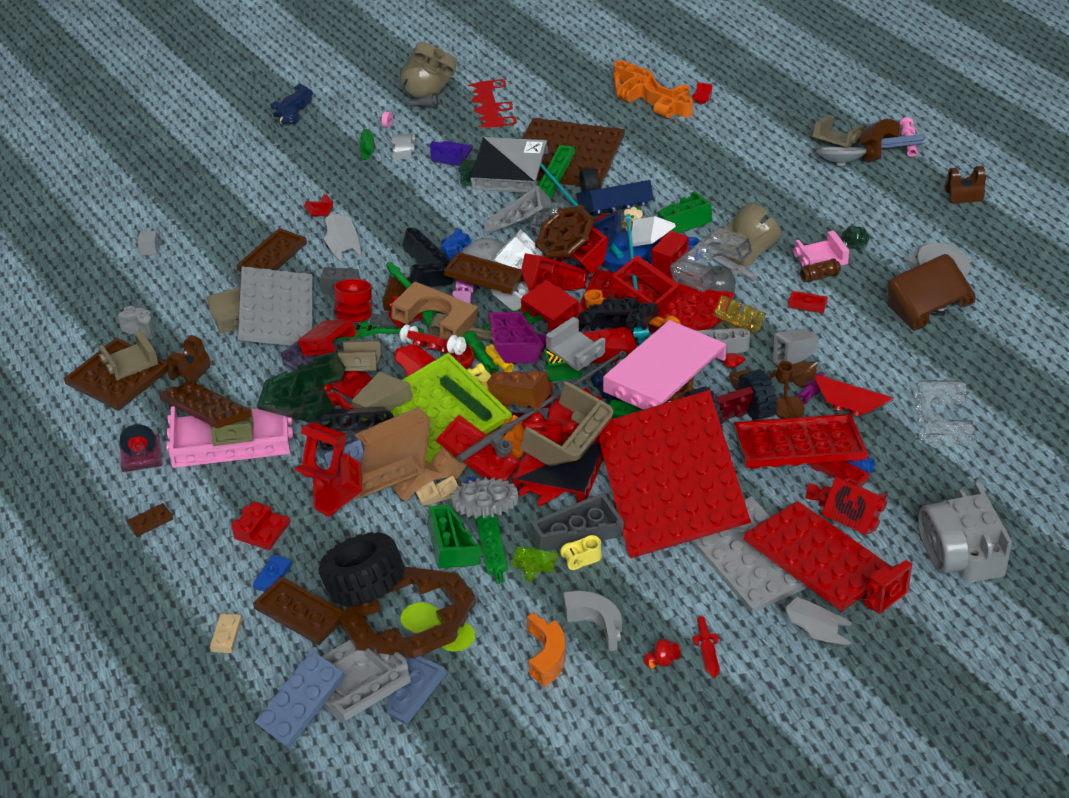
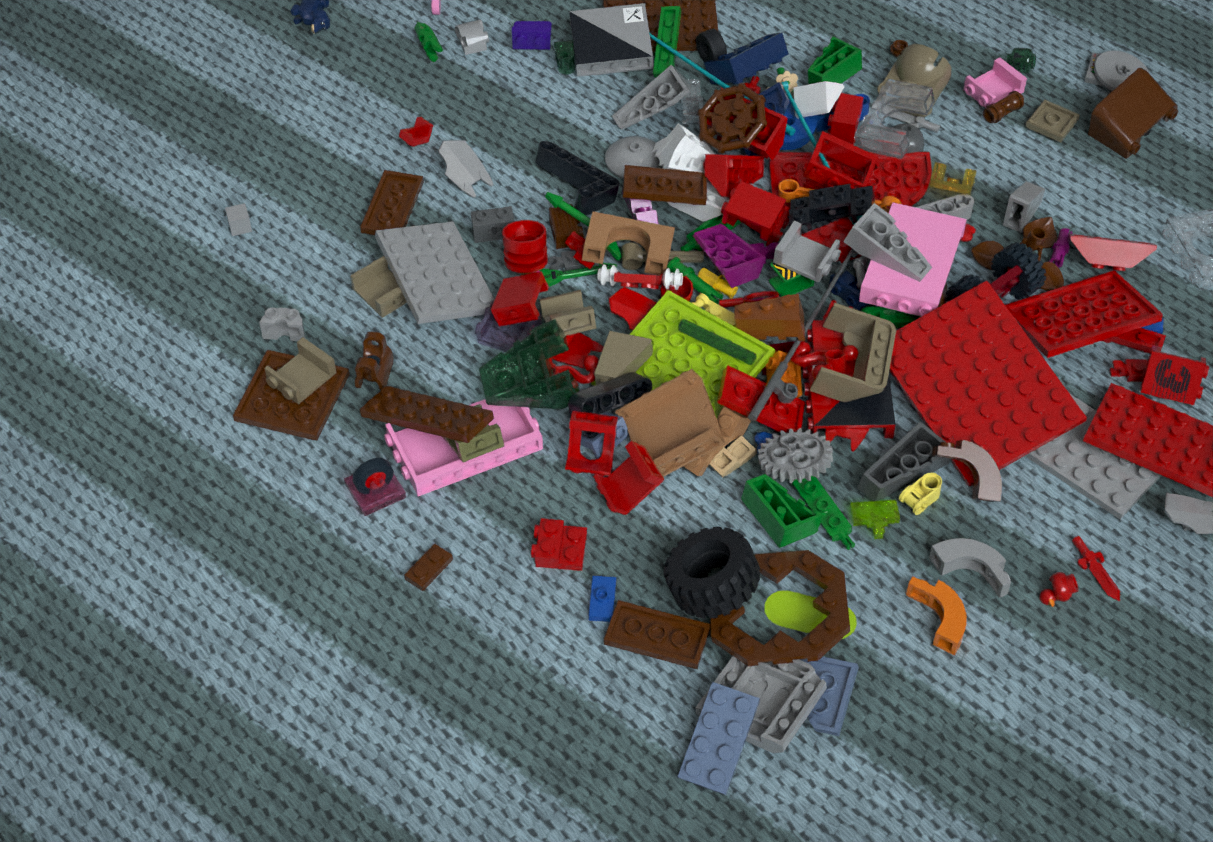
camera: 20 degrees left, 10 degrees up
(226, 633) = (589, 681): tan plate -> none
(455, 243) = (596, 152): blue hips -> none
(637, 344) = (881, 241): none -> light grey wedge
(641, 549) = (984, 469): none -> arch
(808, 302) = (1008, 147): red plate -> none
(859, 288) = (1052, 121): none -> dark tan plate

